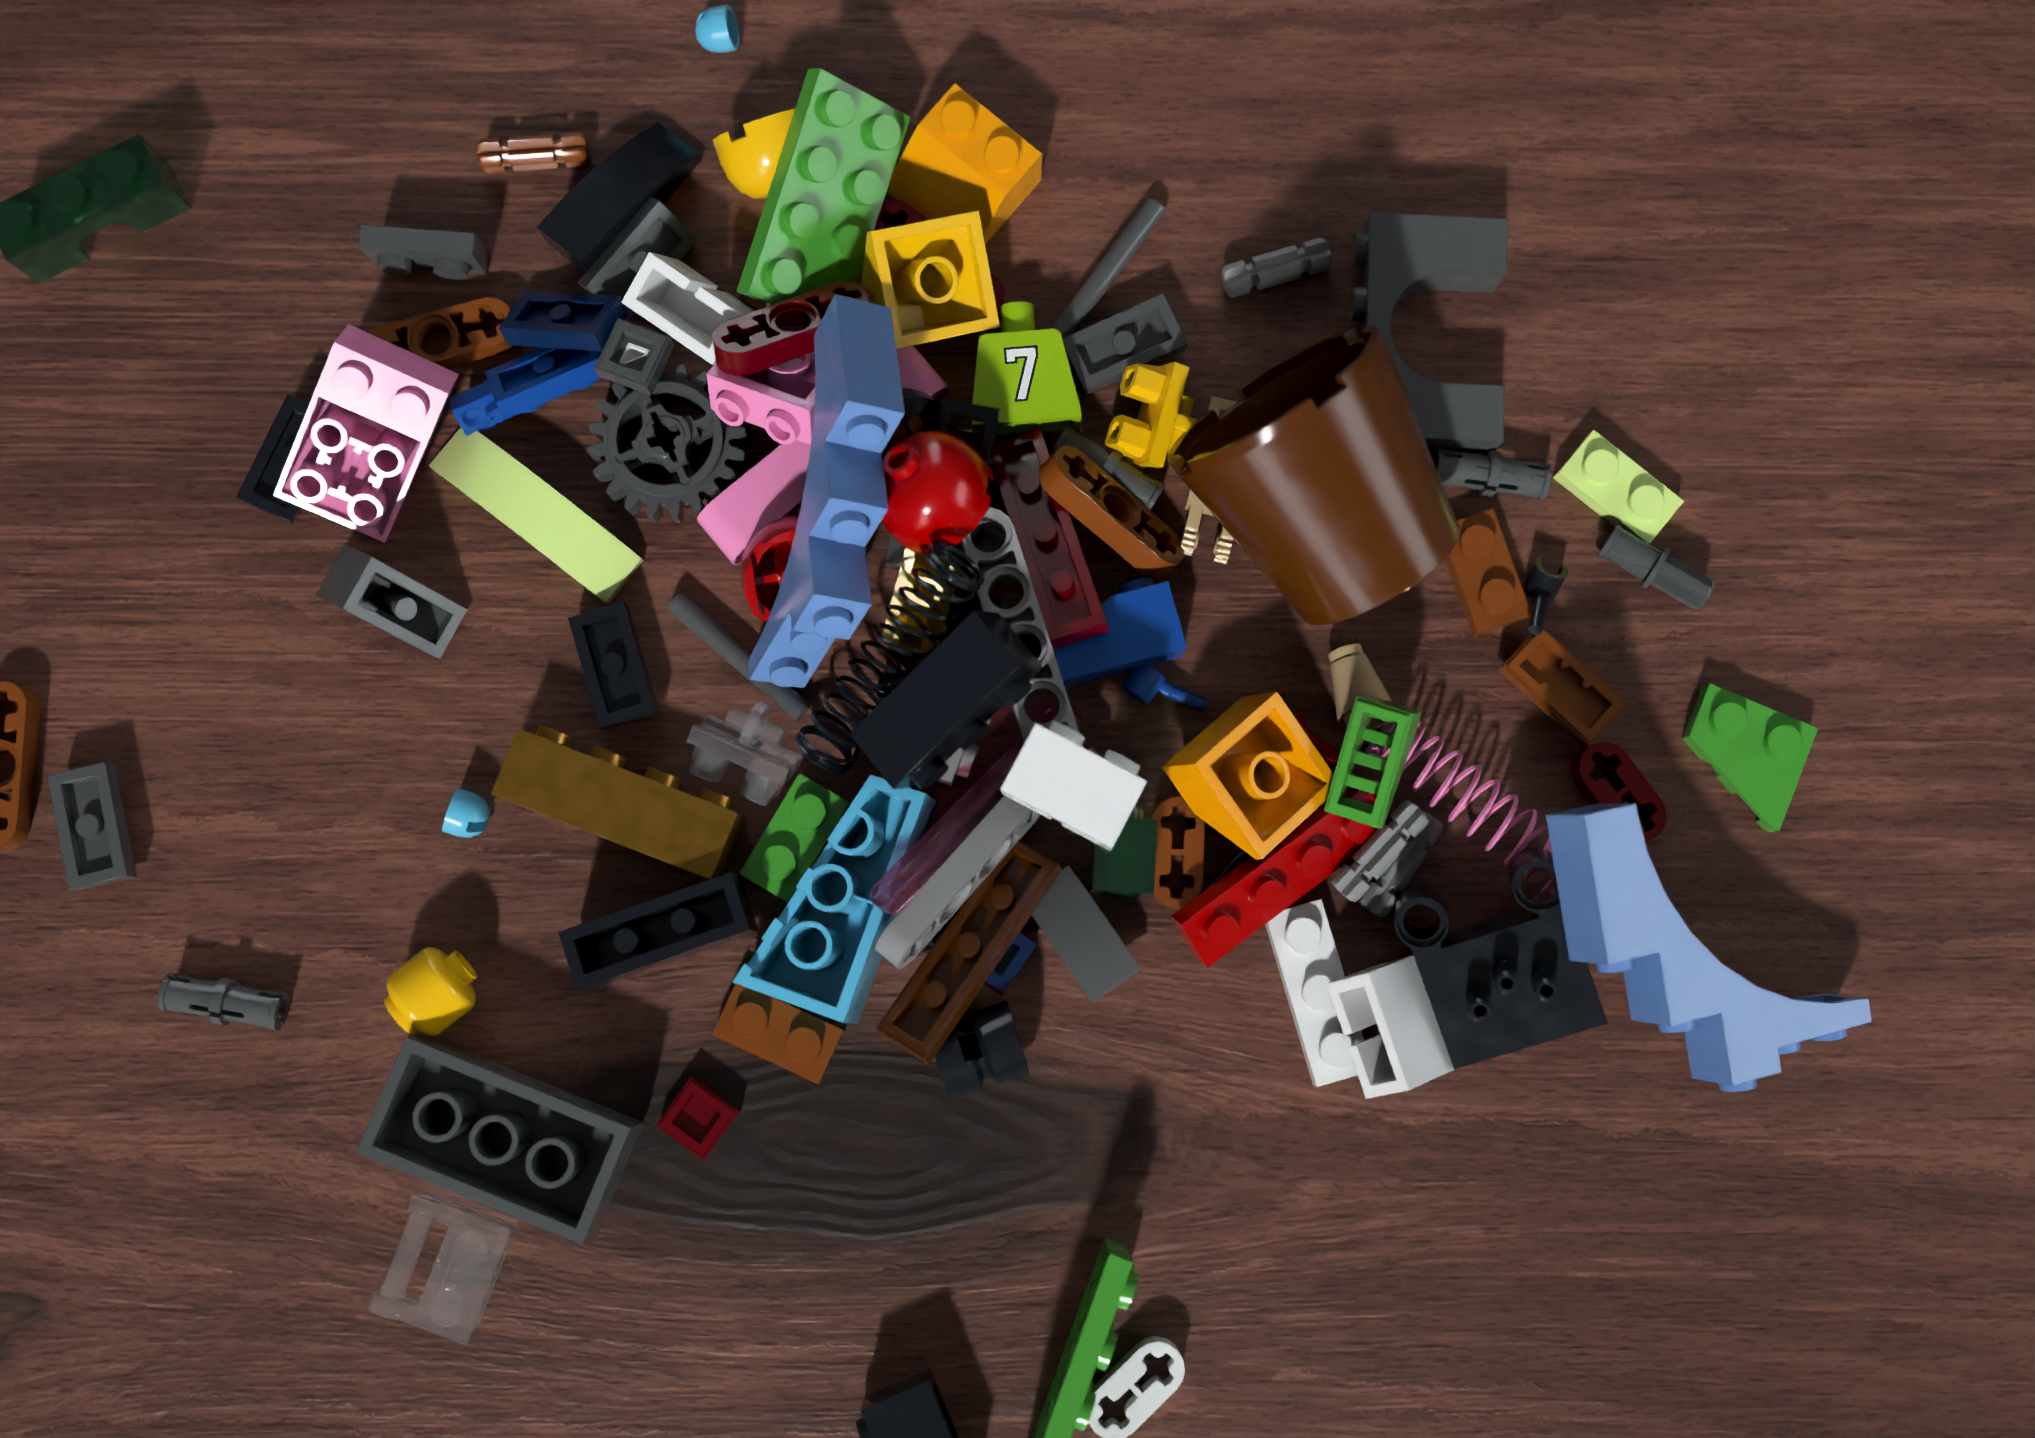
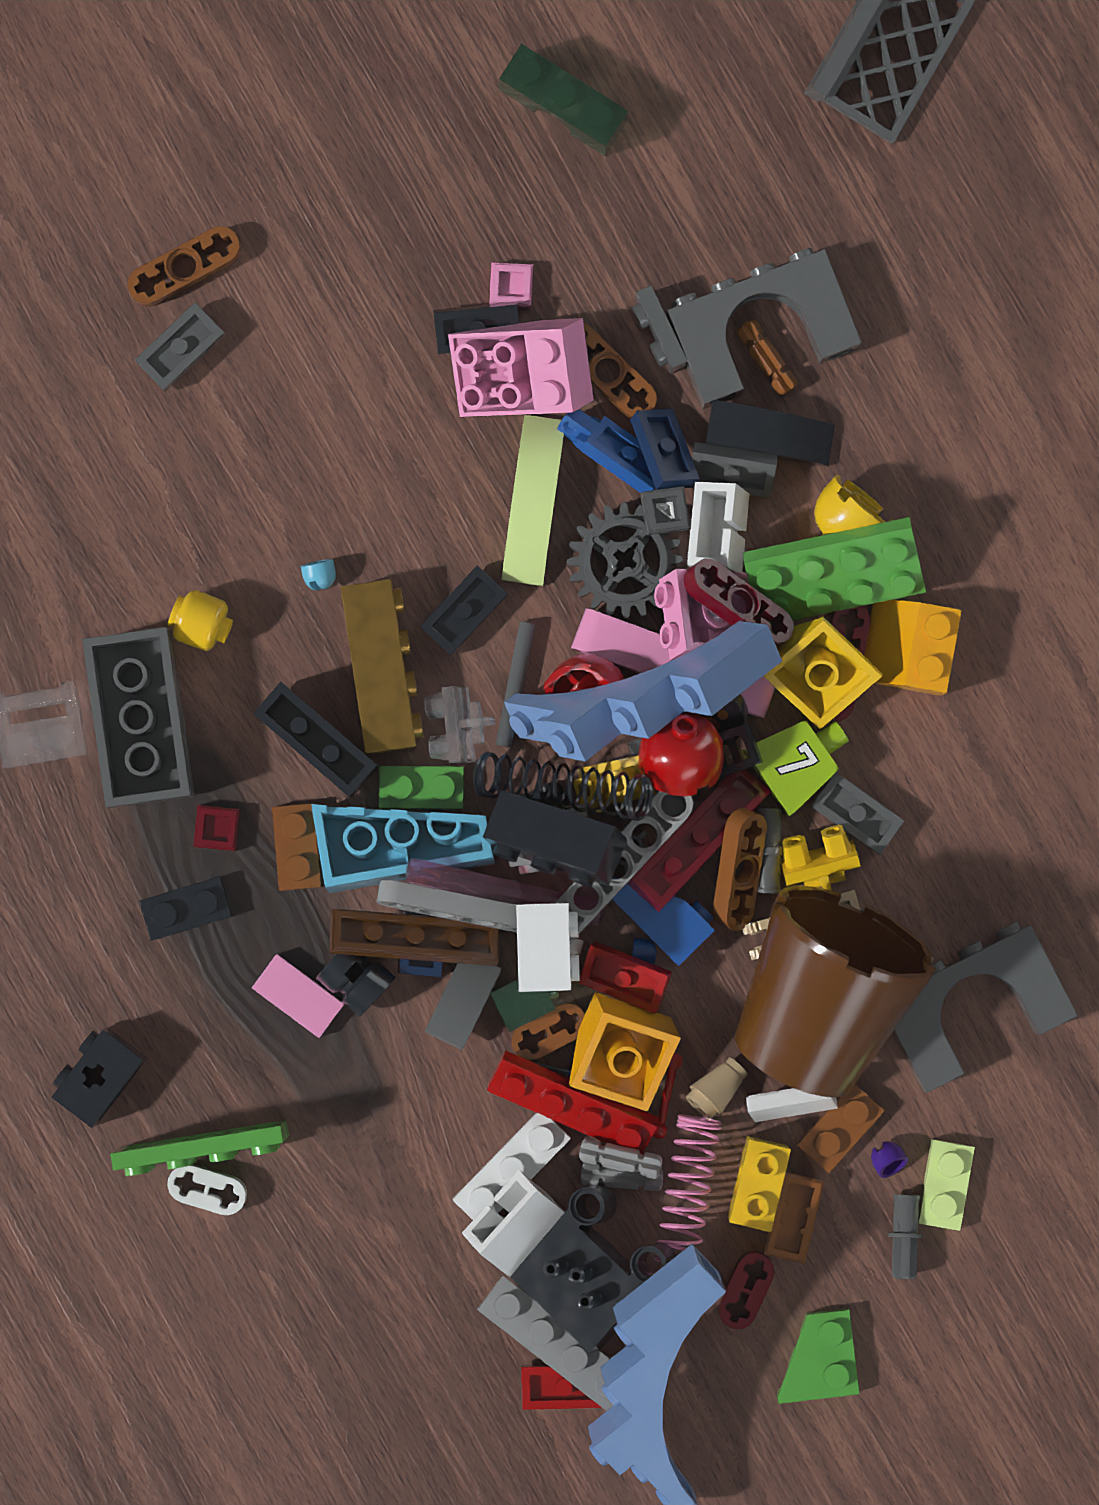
camera: 60 degrees right, 5 degrees up
(223, 1001) = (121, 494): dark grey pin -> none
(264, 391) = (511, 284): none -> bright pink tile
(391, 601) = (424, 447): dark grey slope -> none
(474, 63) = (803, 285): none -> dark grey arch
(718, 29) = (918, 428): medium azure hinge -> none
(773, 1214) = (185, 908): none -> black plate
(960, 1135) = (298, 995): none -> bright pink tile
(1109, 267) = (902, 774): dark grey bar -> none
(1165, 720) = (625, 977): none -> red plate
(1276, 267) = (967, 883): light grey axle -> none
(1392, 767) = (686, 1102): bright green slope -> none
(1424, 613) = (786, 1104): none -> white tile
(1492, 473) = (907, 1096): dark grey pin -> none
(1502, 703) = (758, 1184): none -> yellow brick
(1543, 589) = (849, 1171): black hand -> none
(1552, 1069) = (545, 1338): none -> light grey plate
(1554, 537) = (889, 1159): none -> dark purple hinge
(1620, 1080) = (549, 1390): none -> red plate

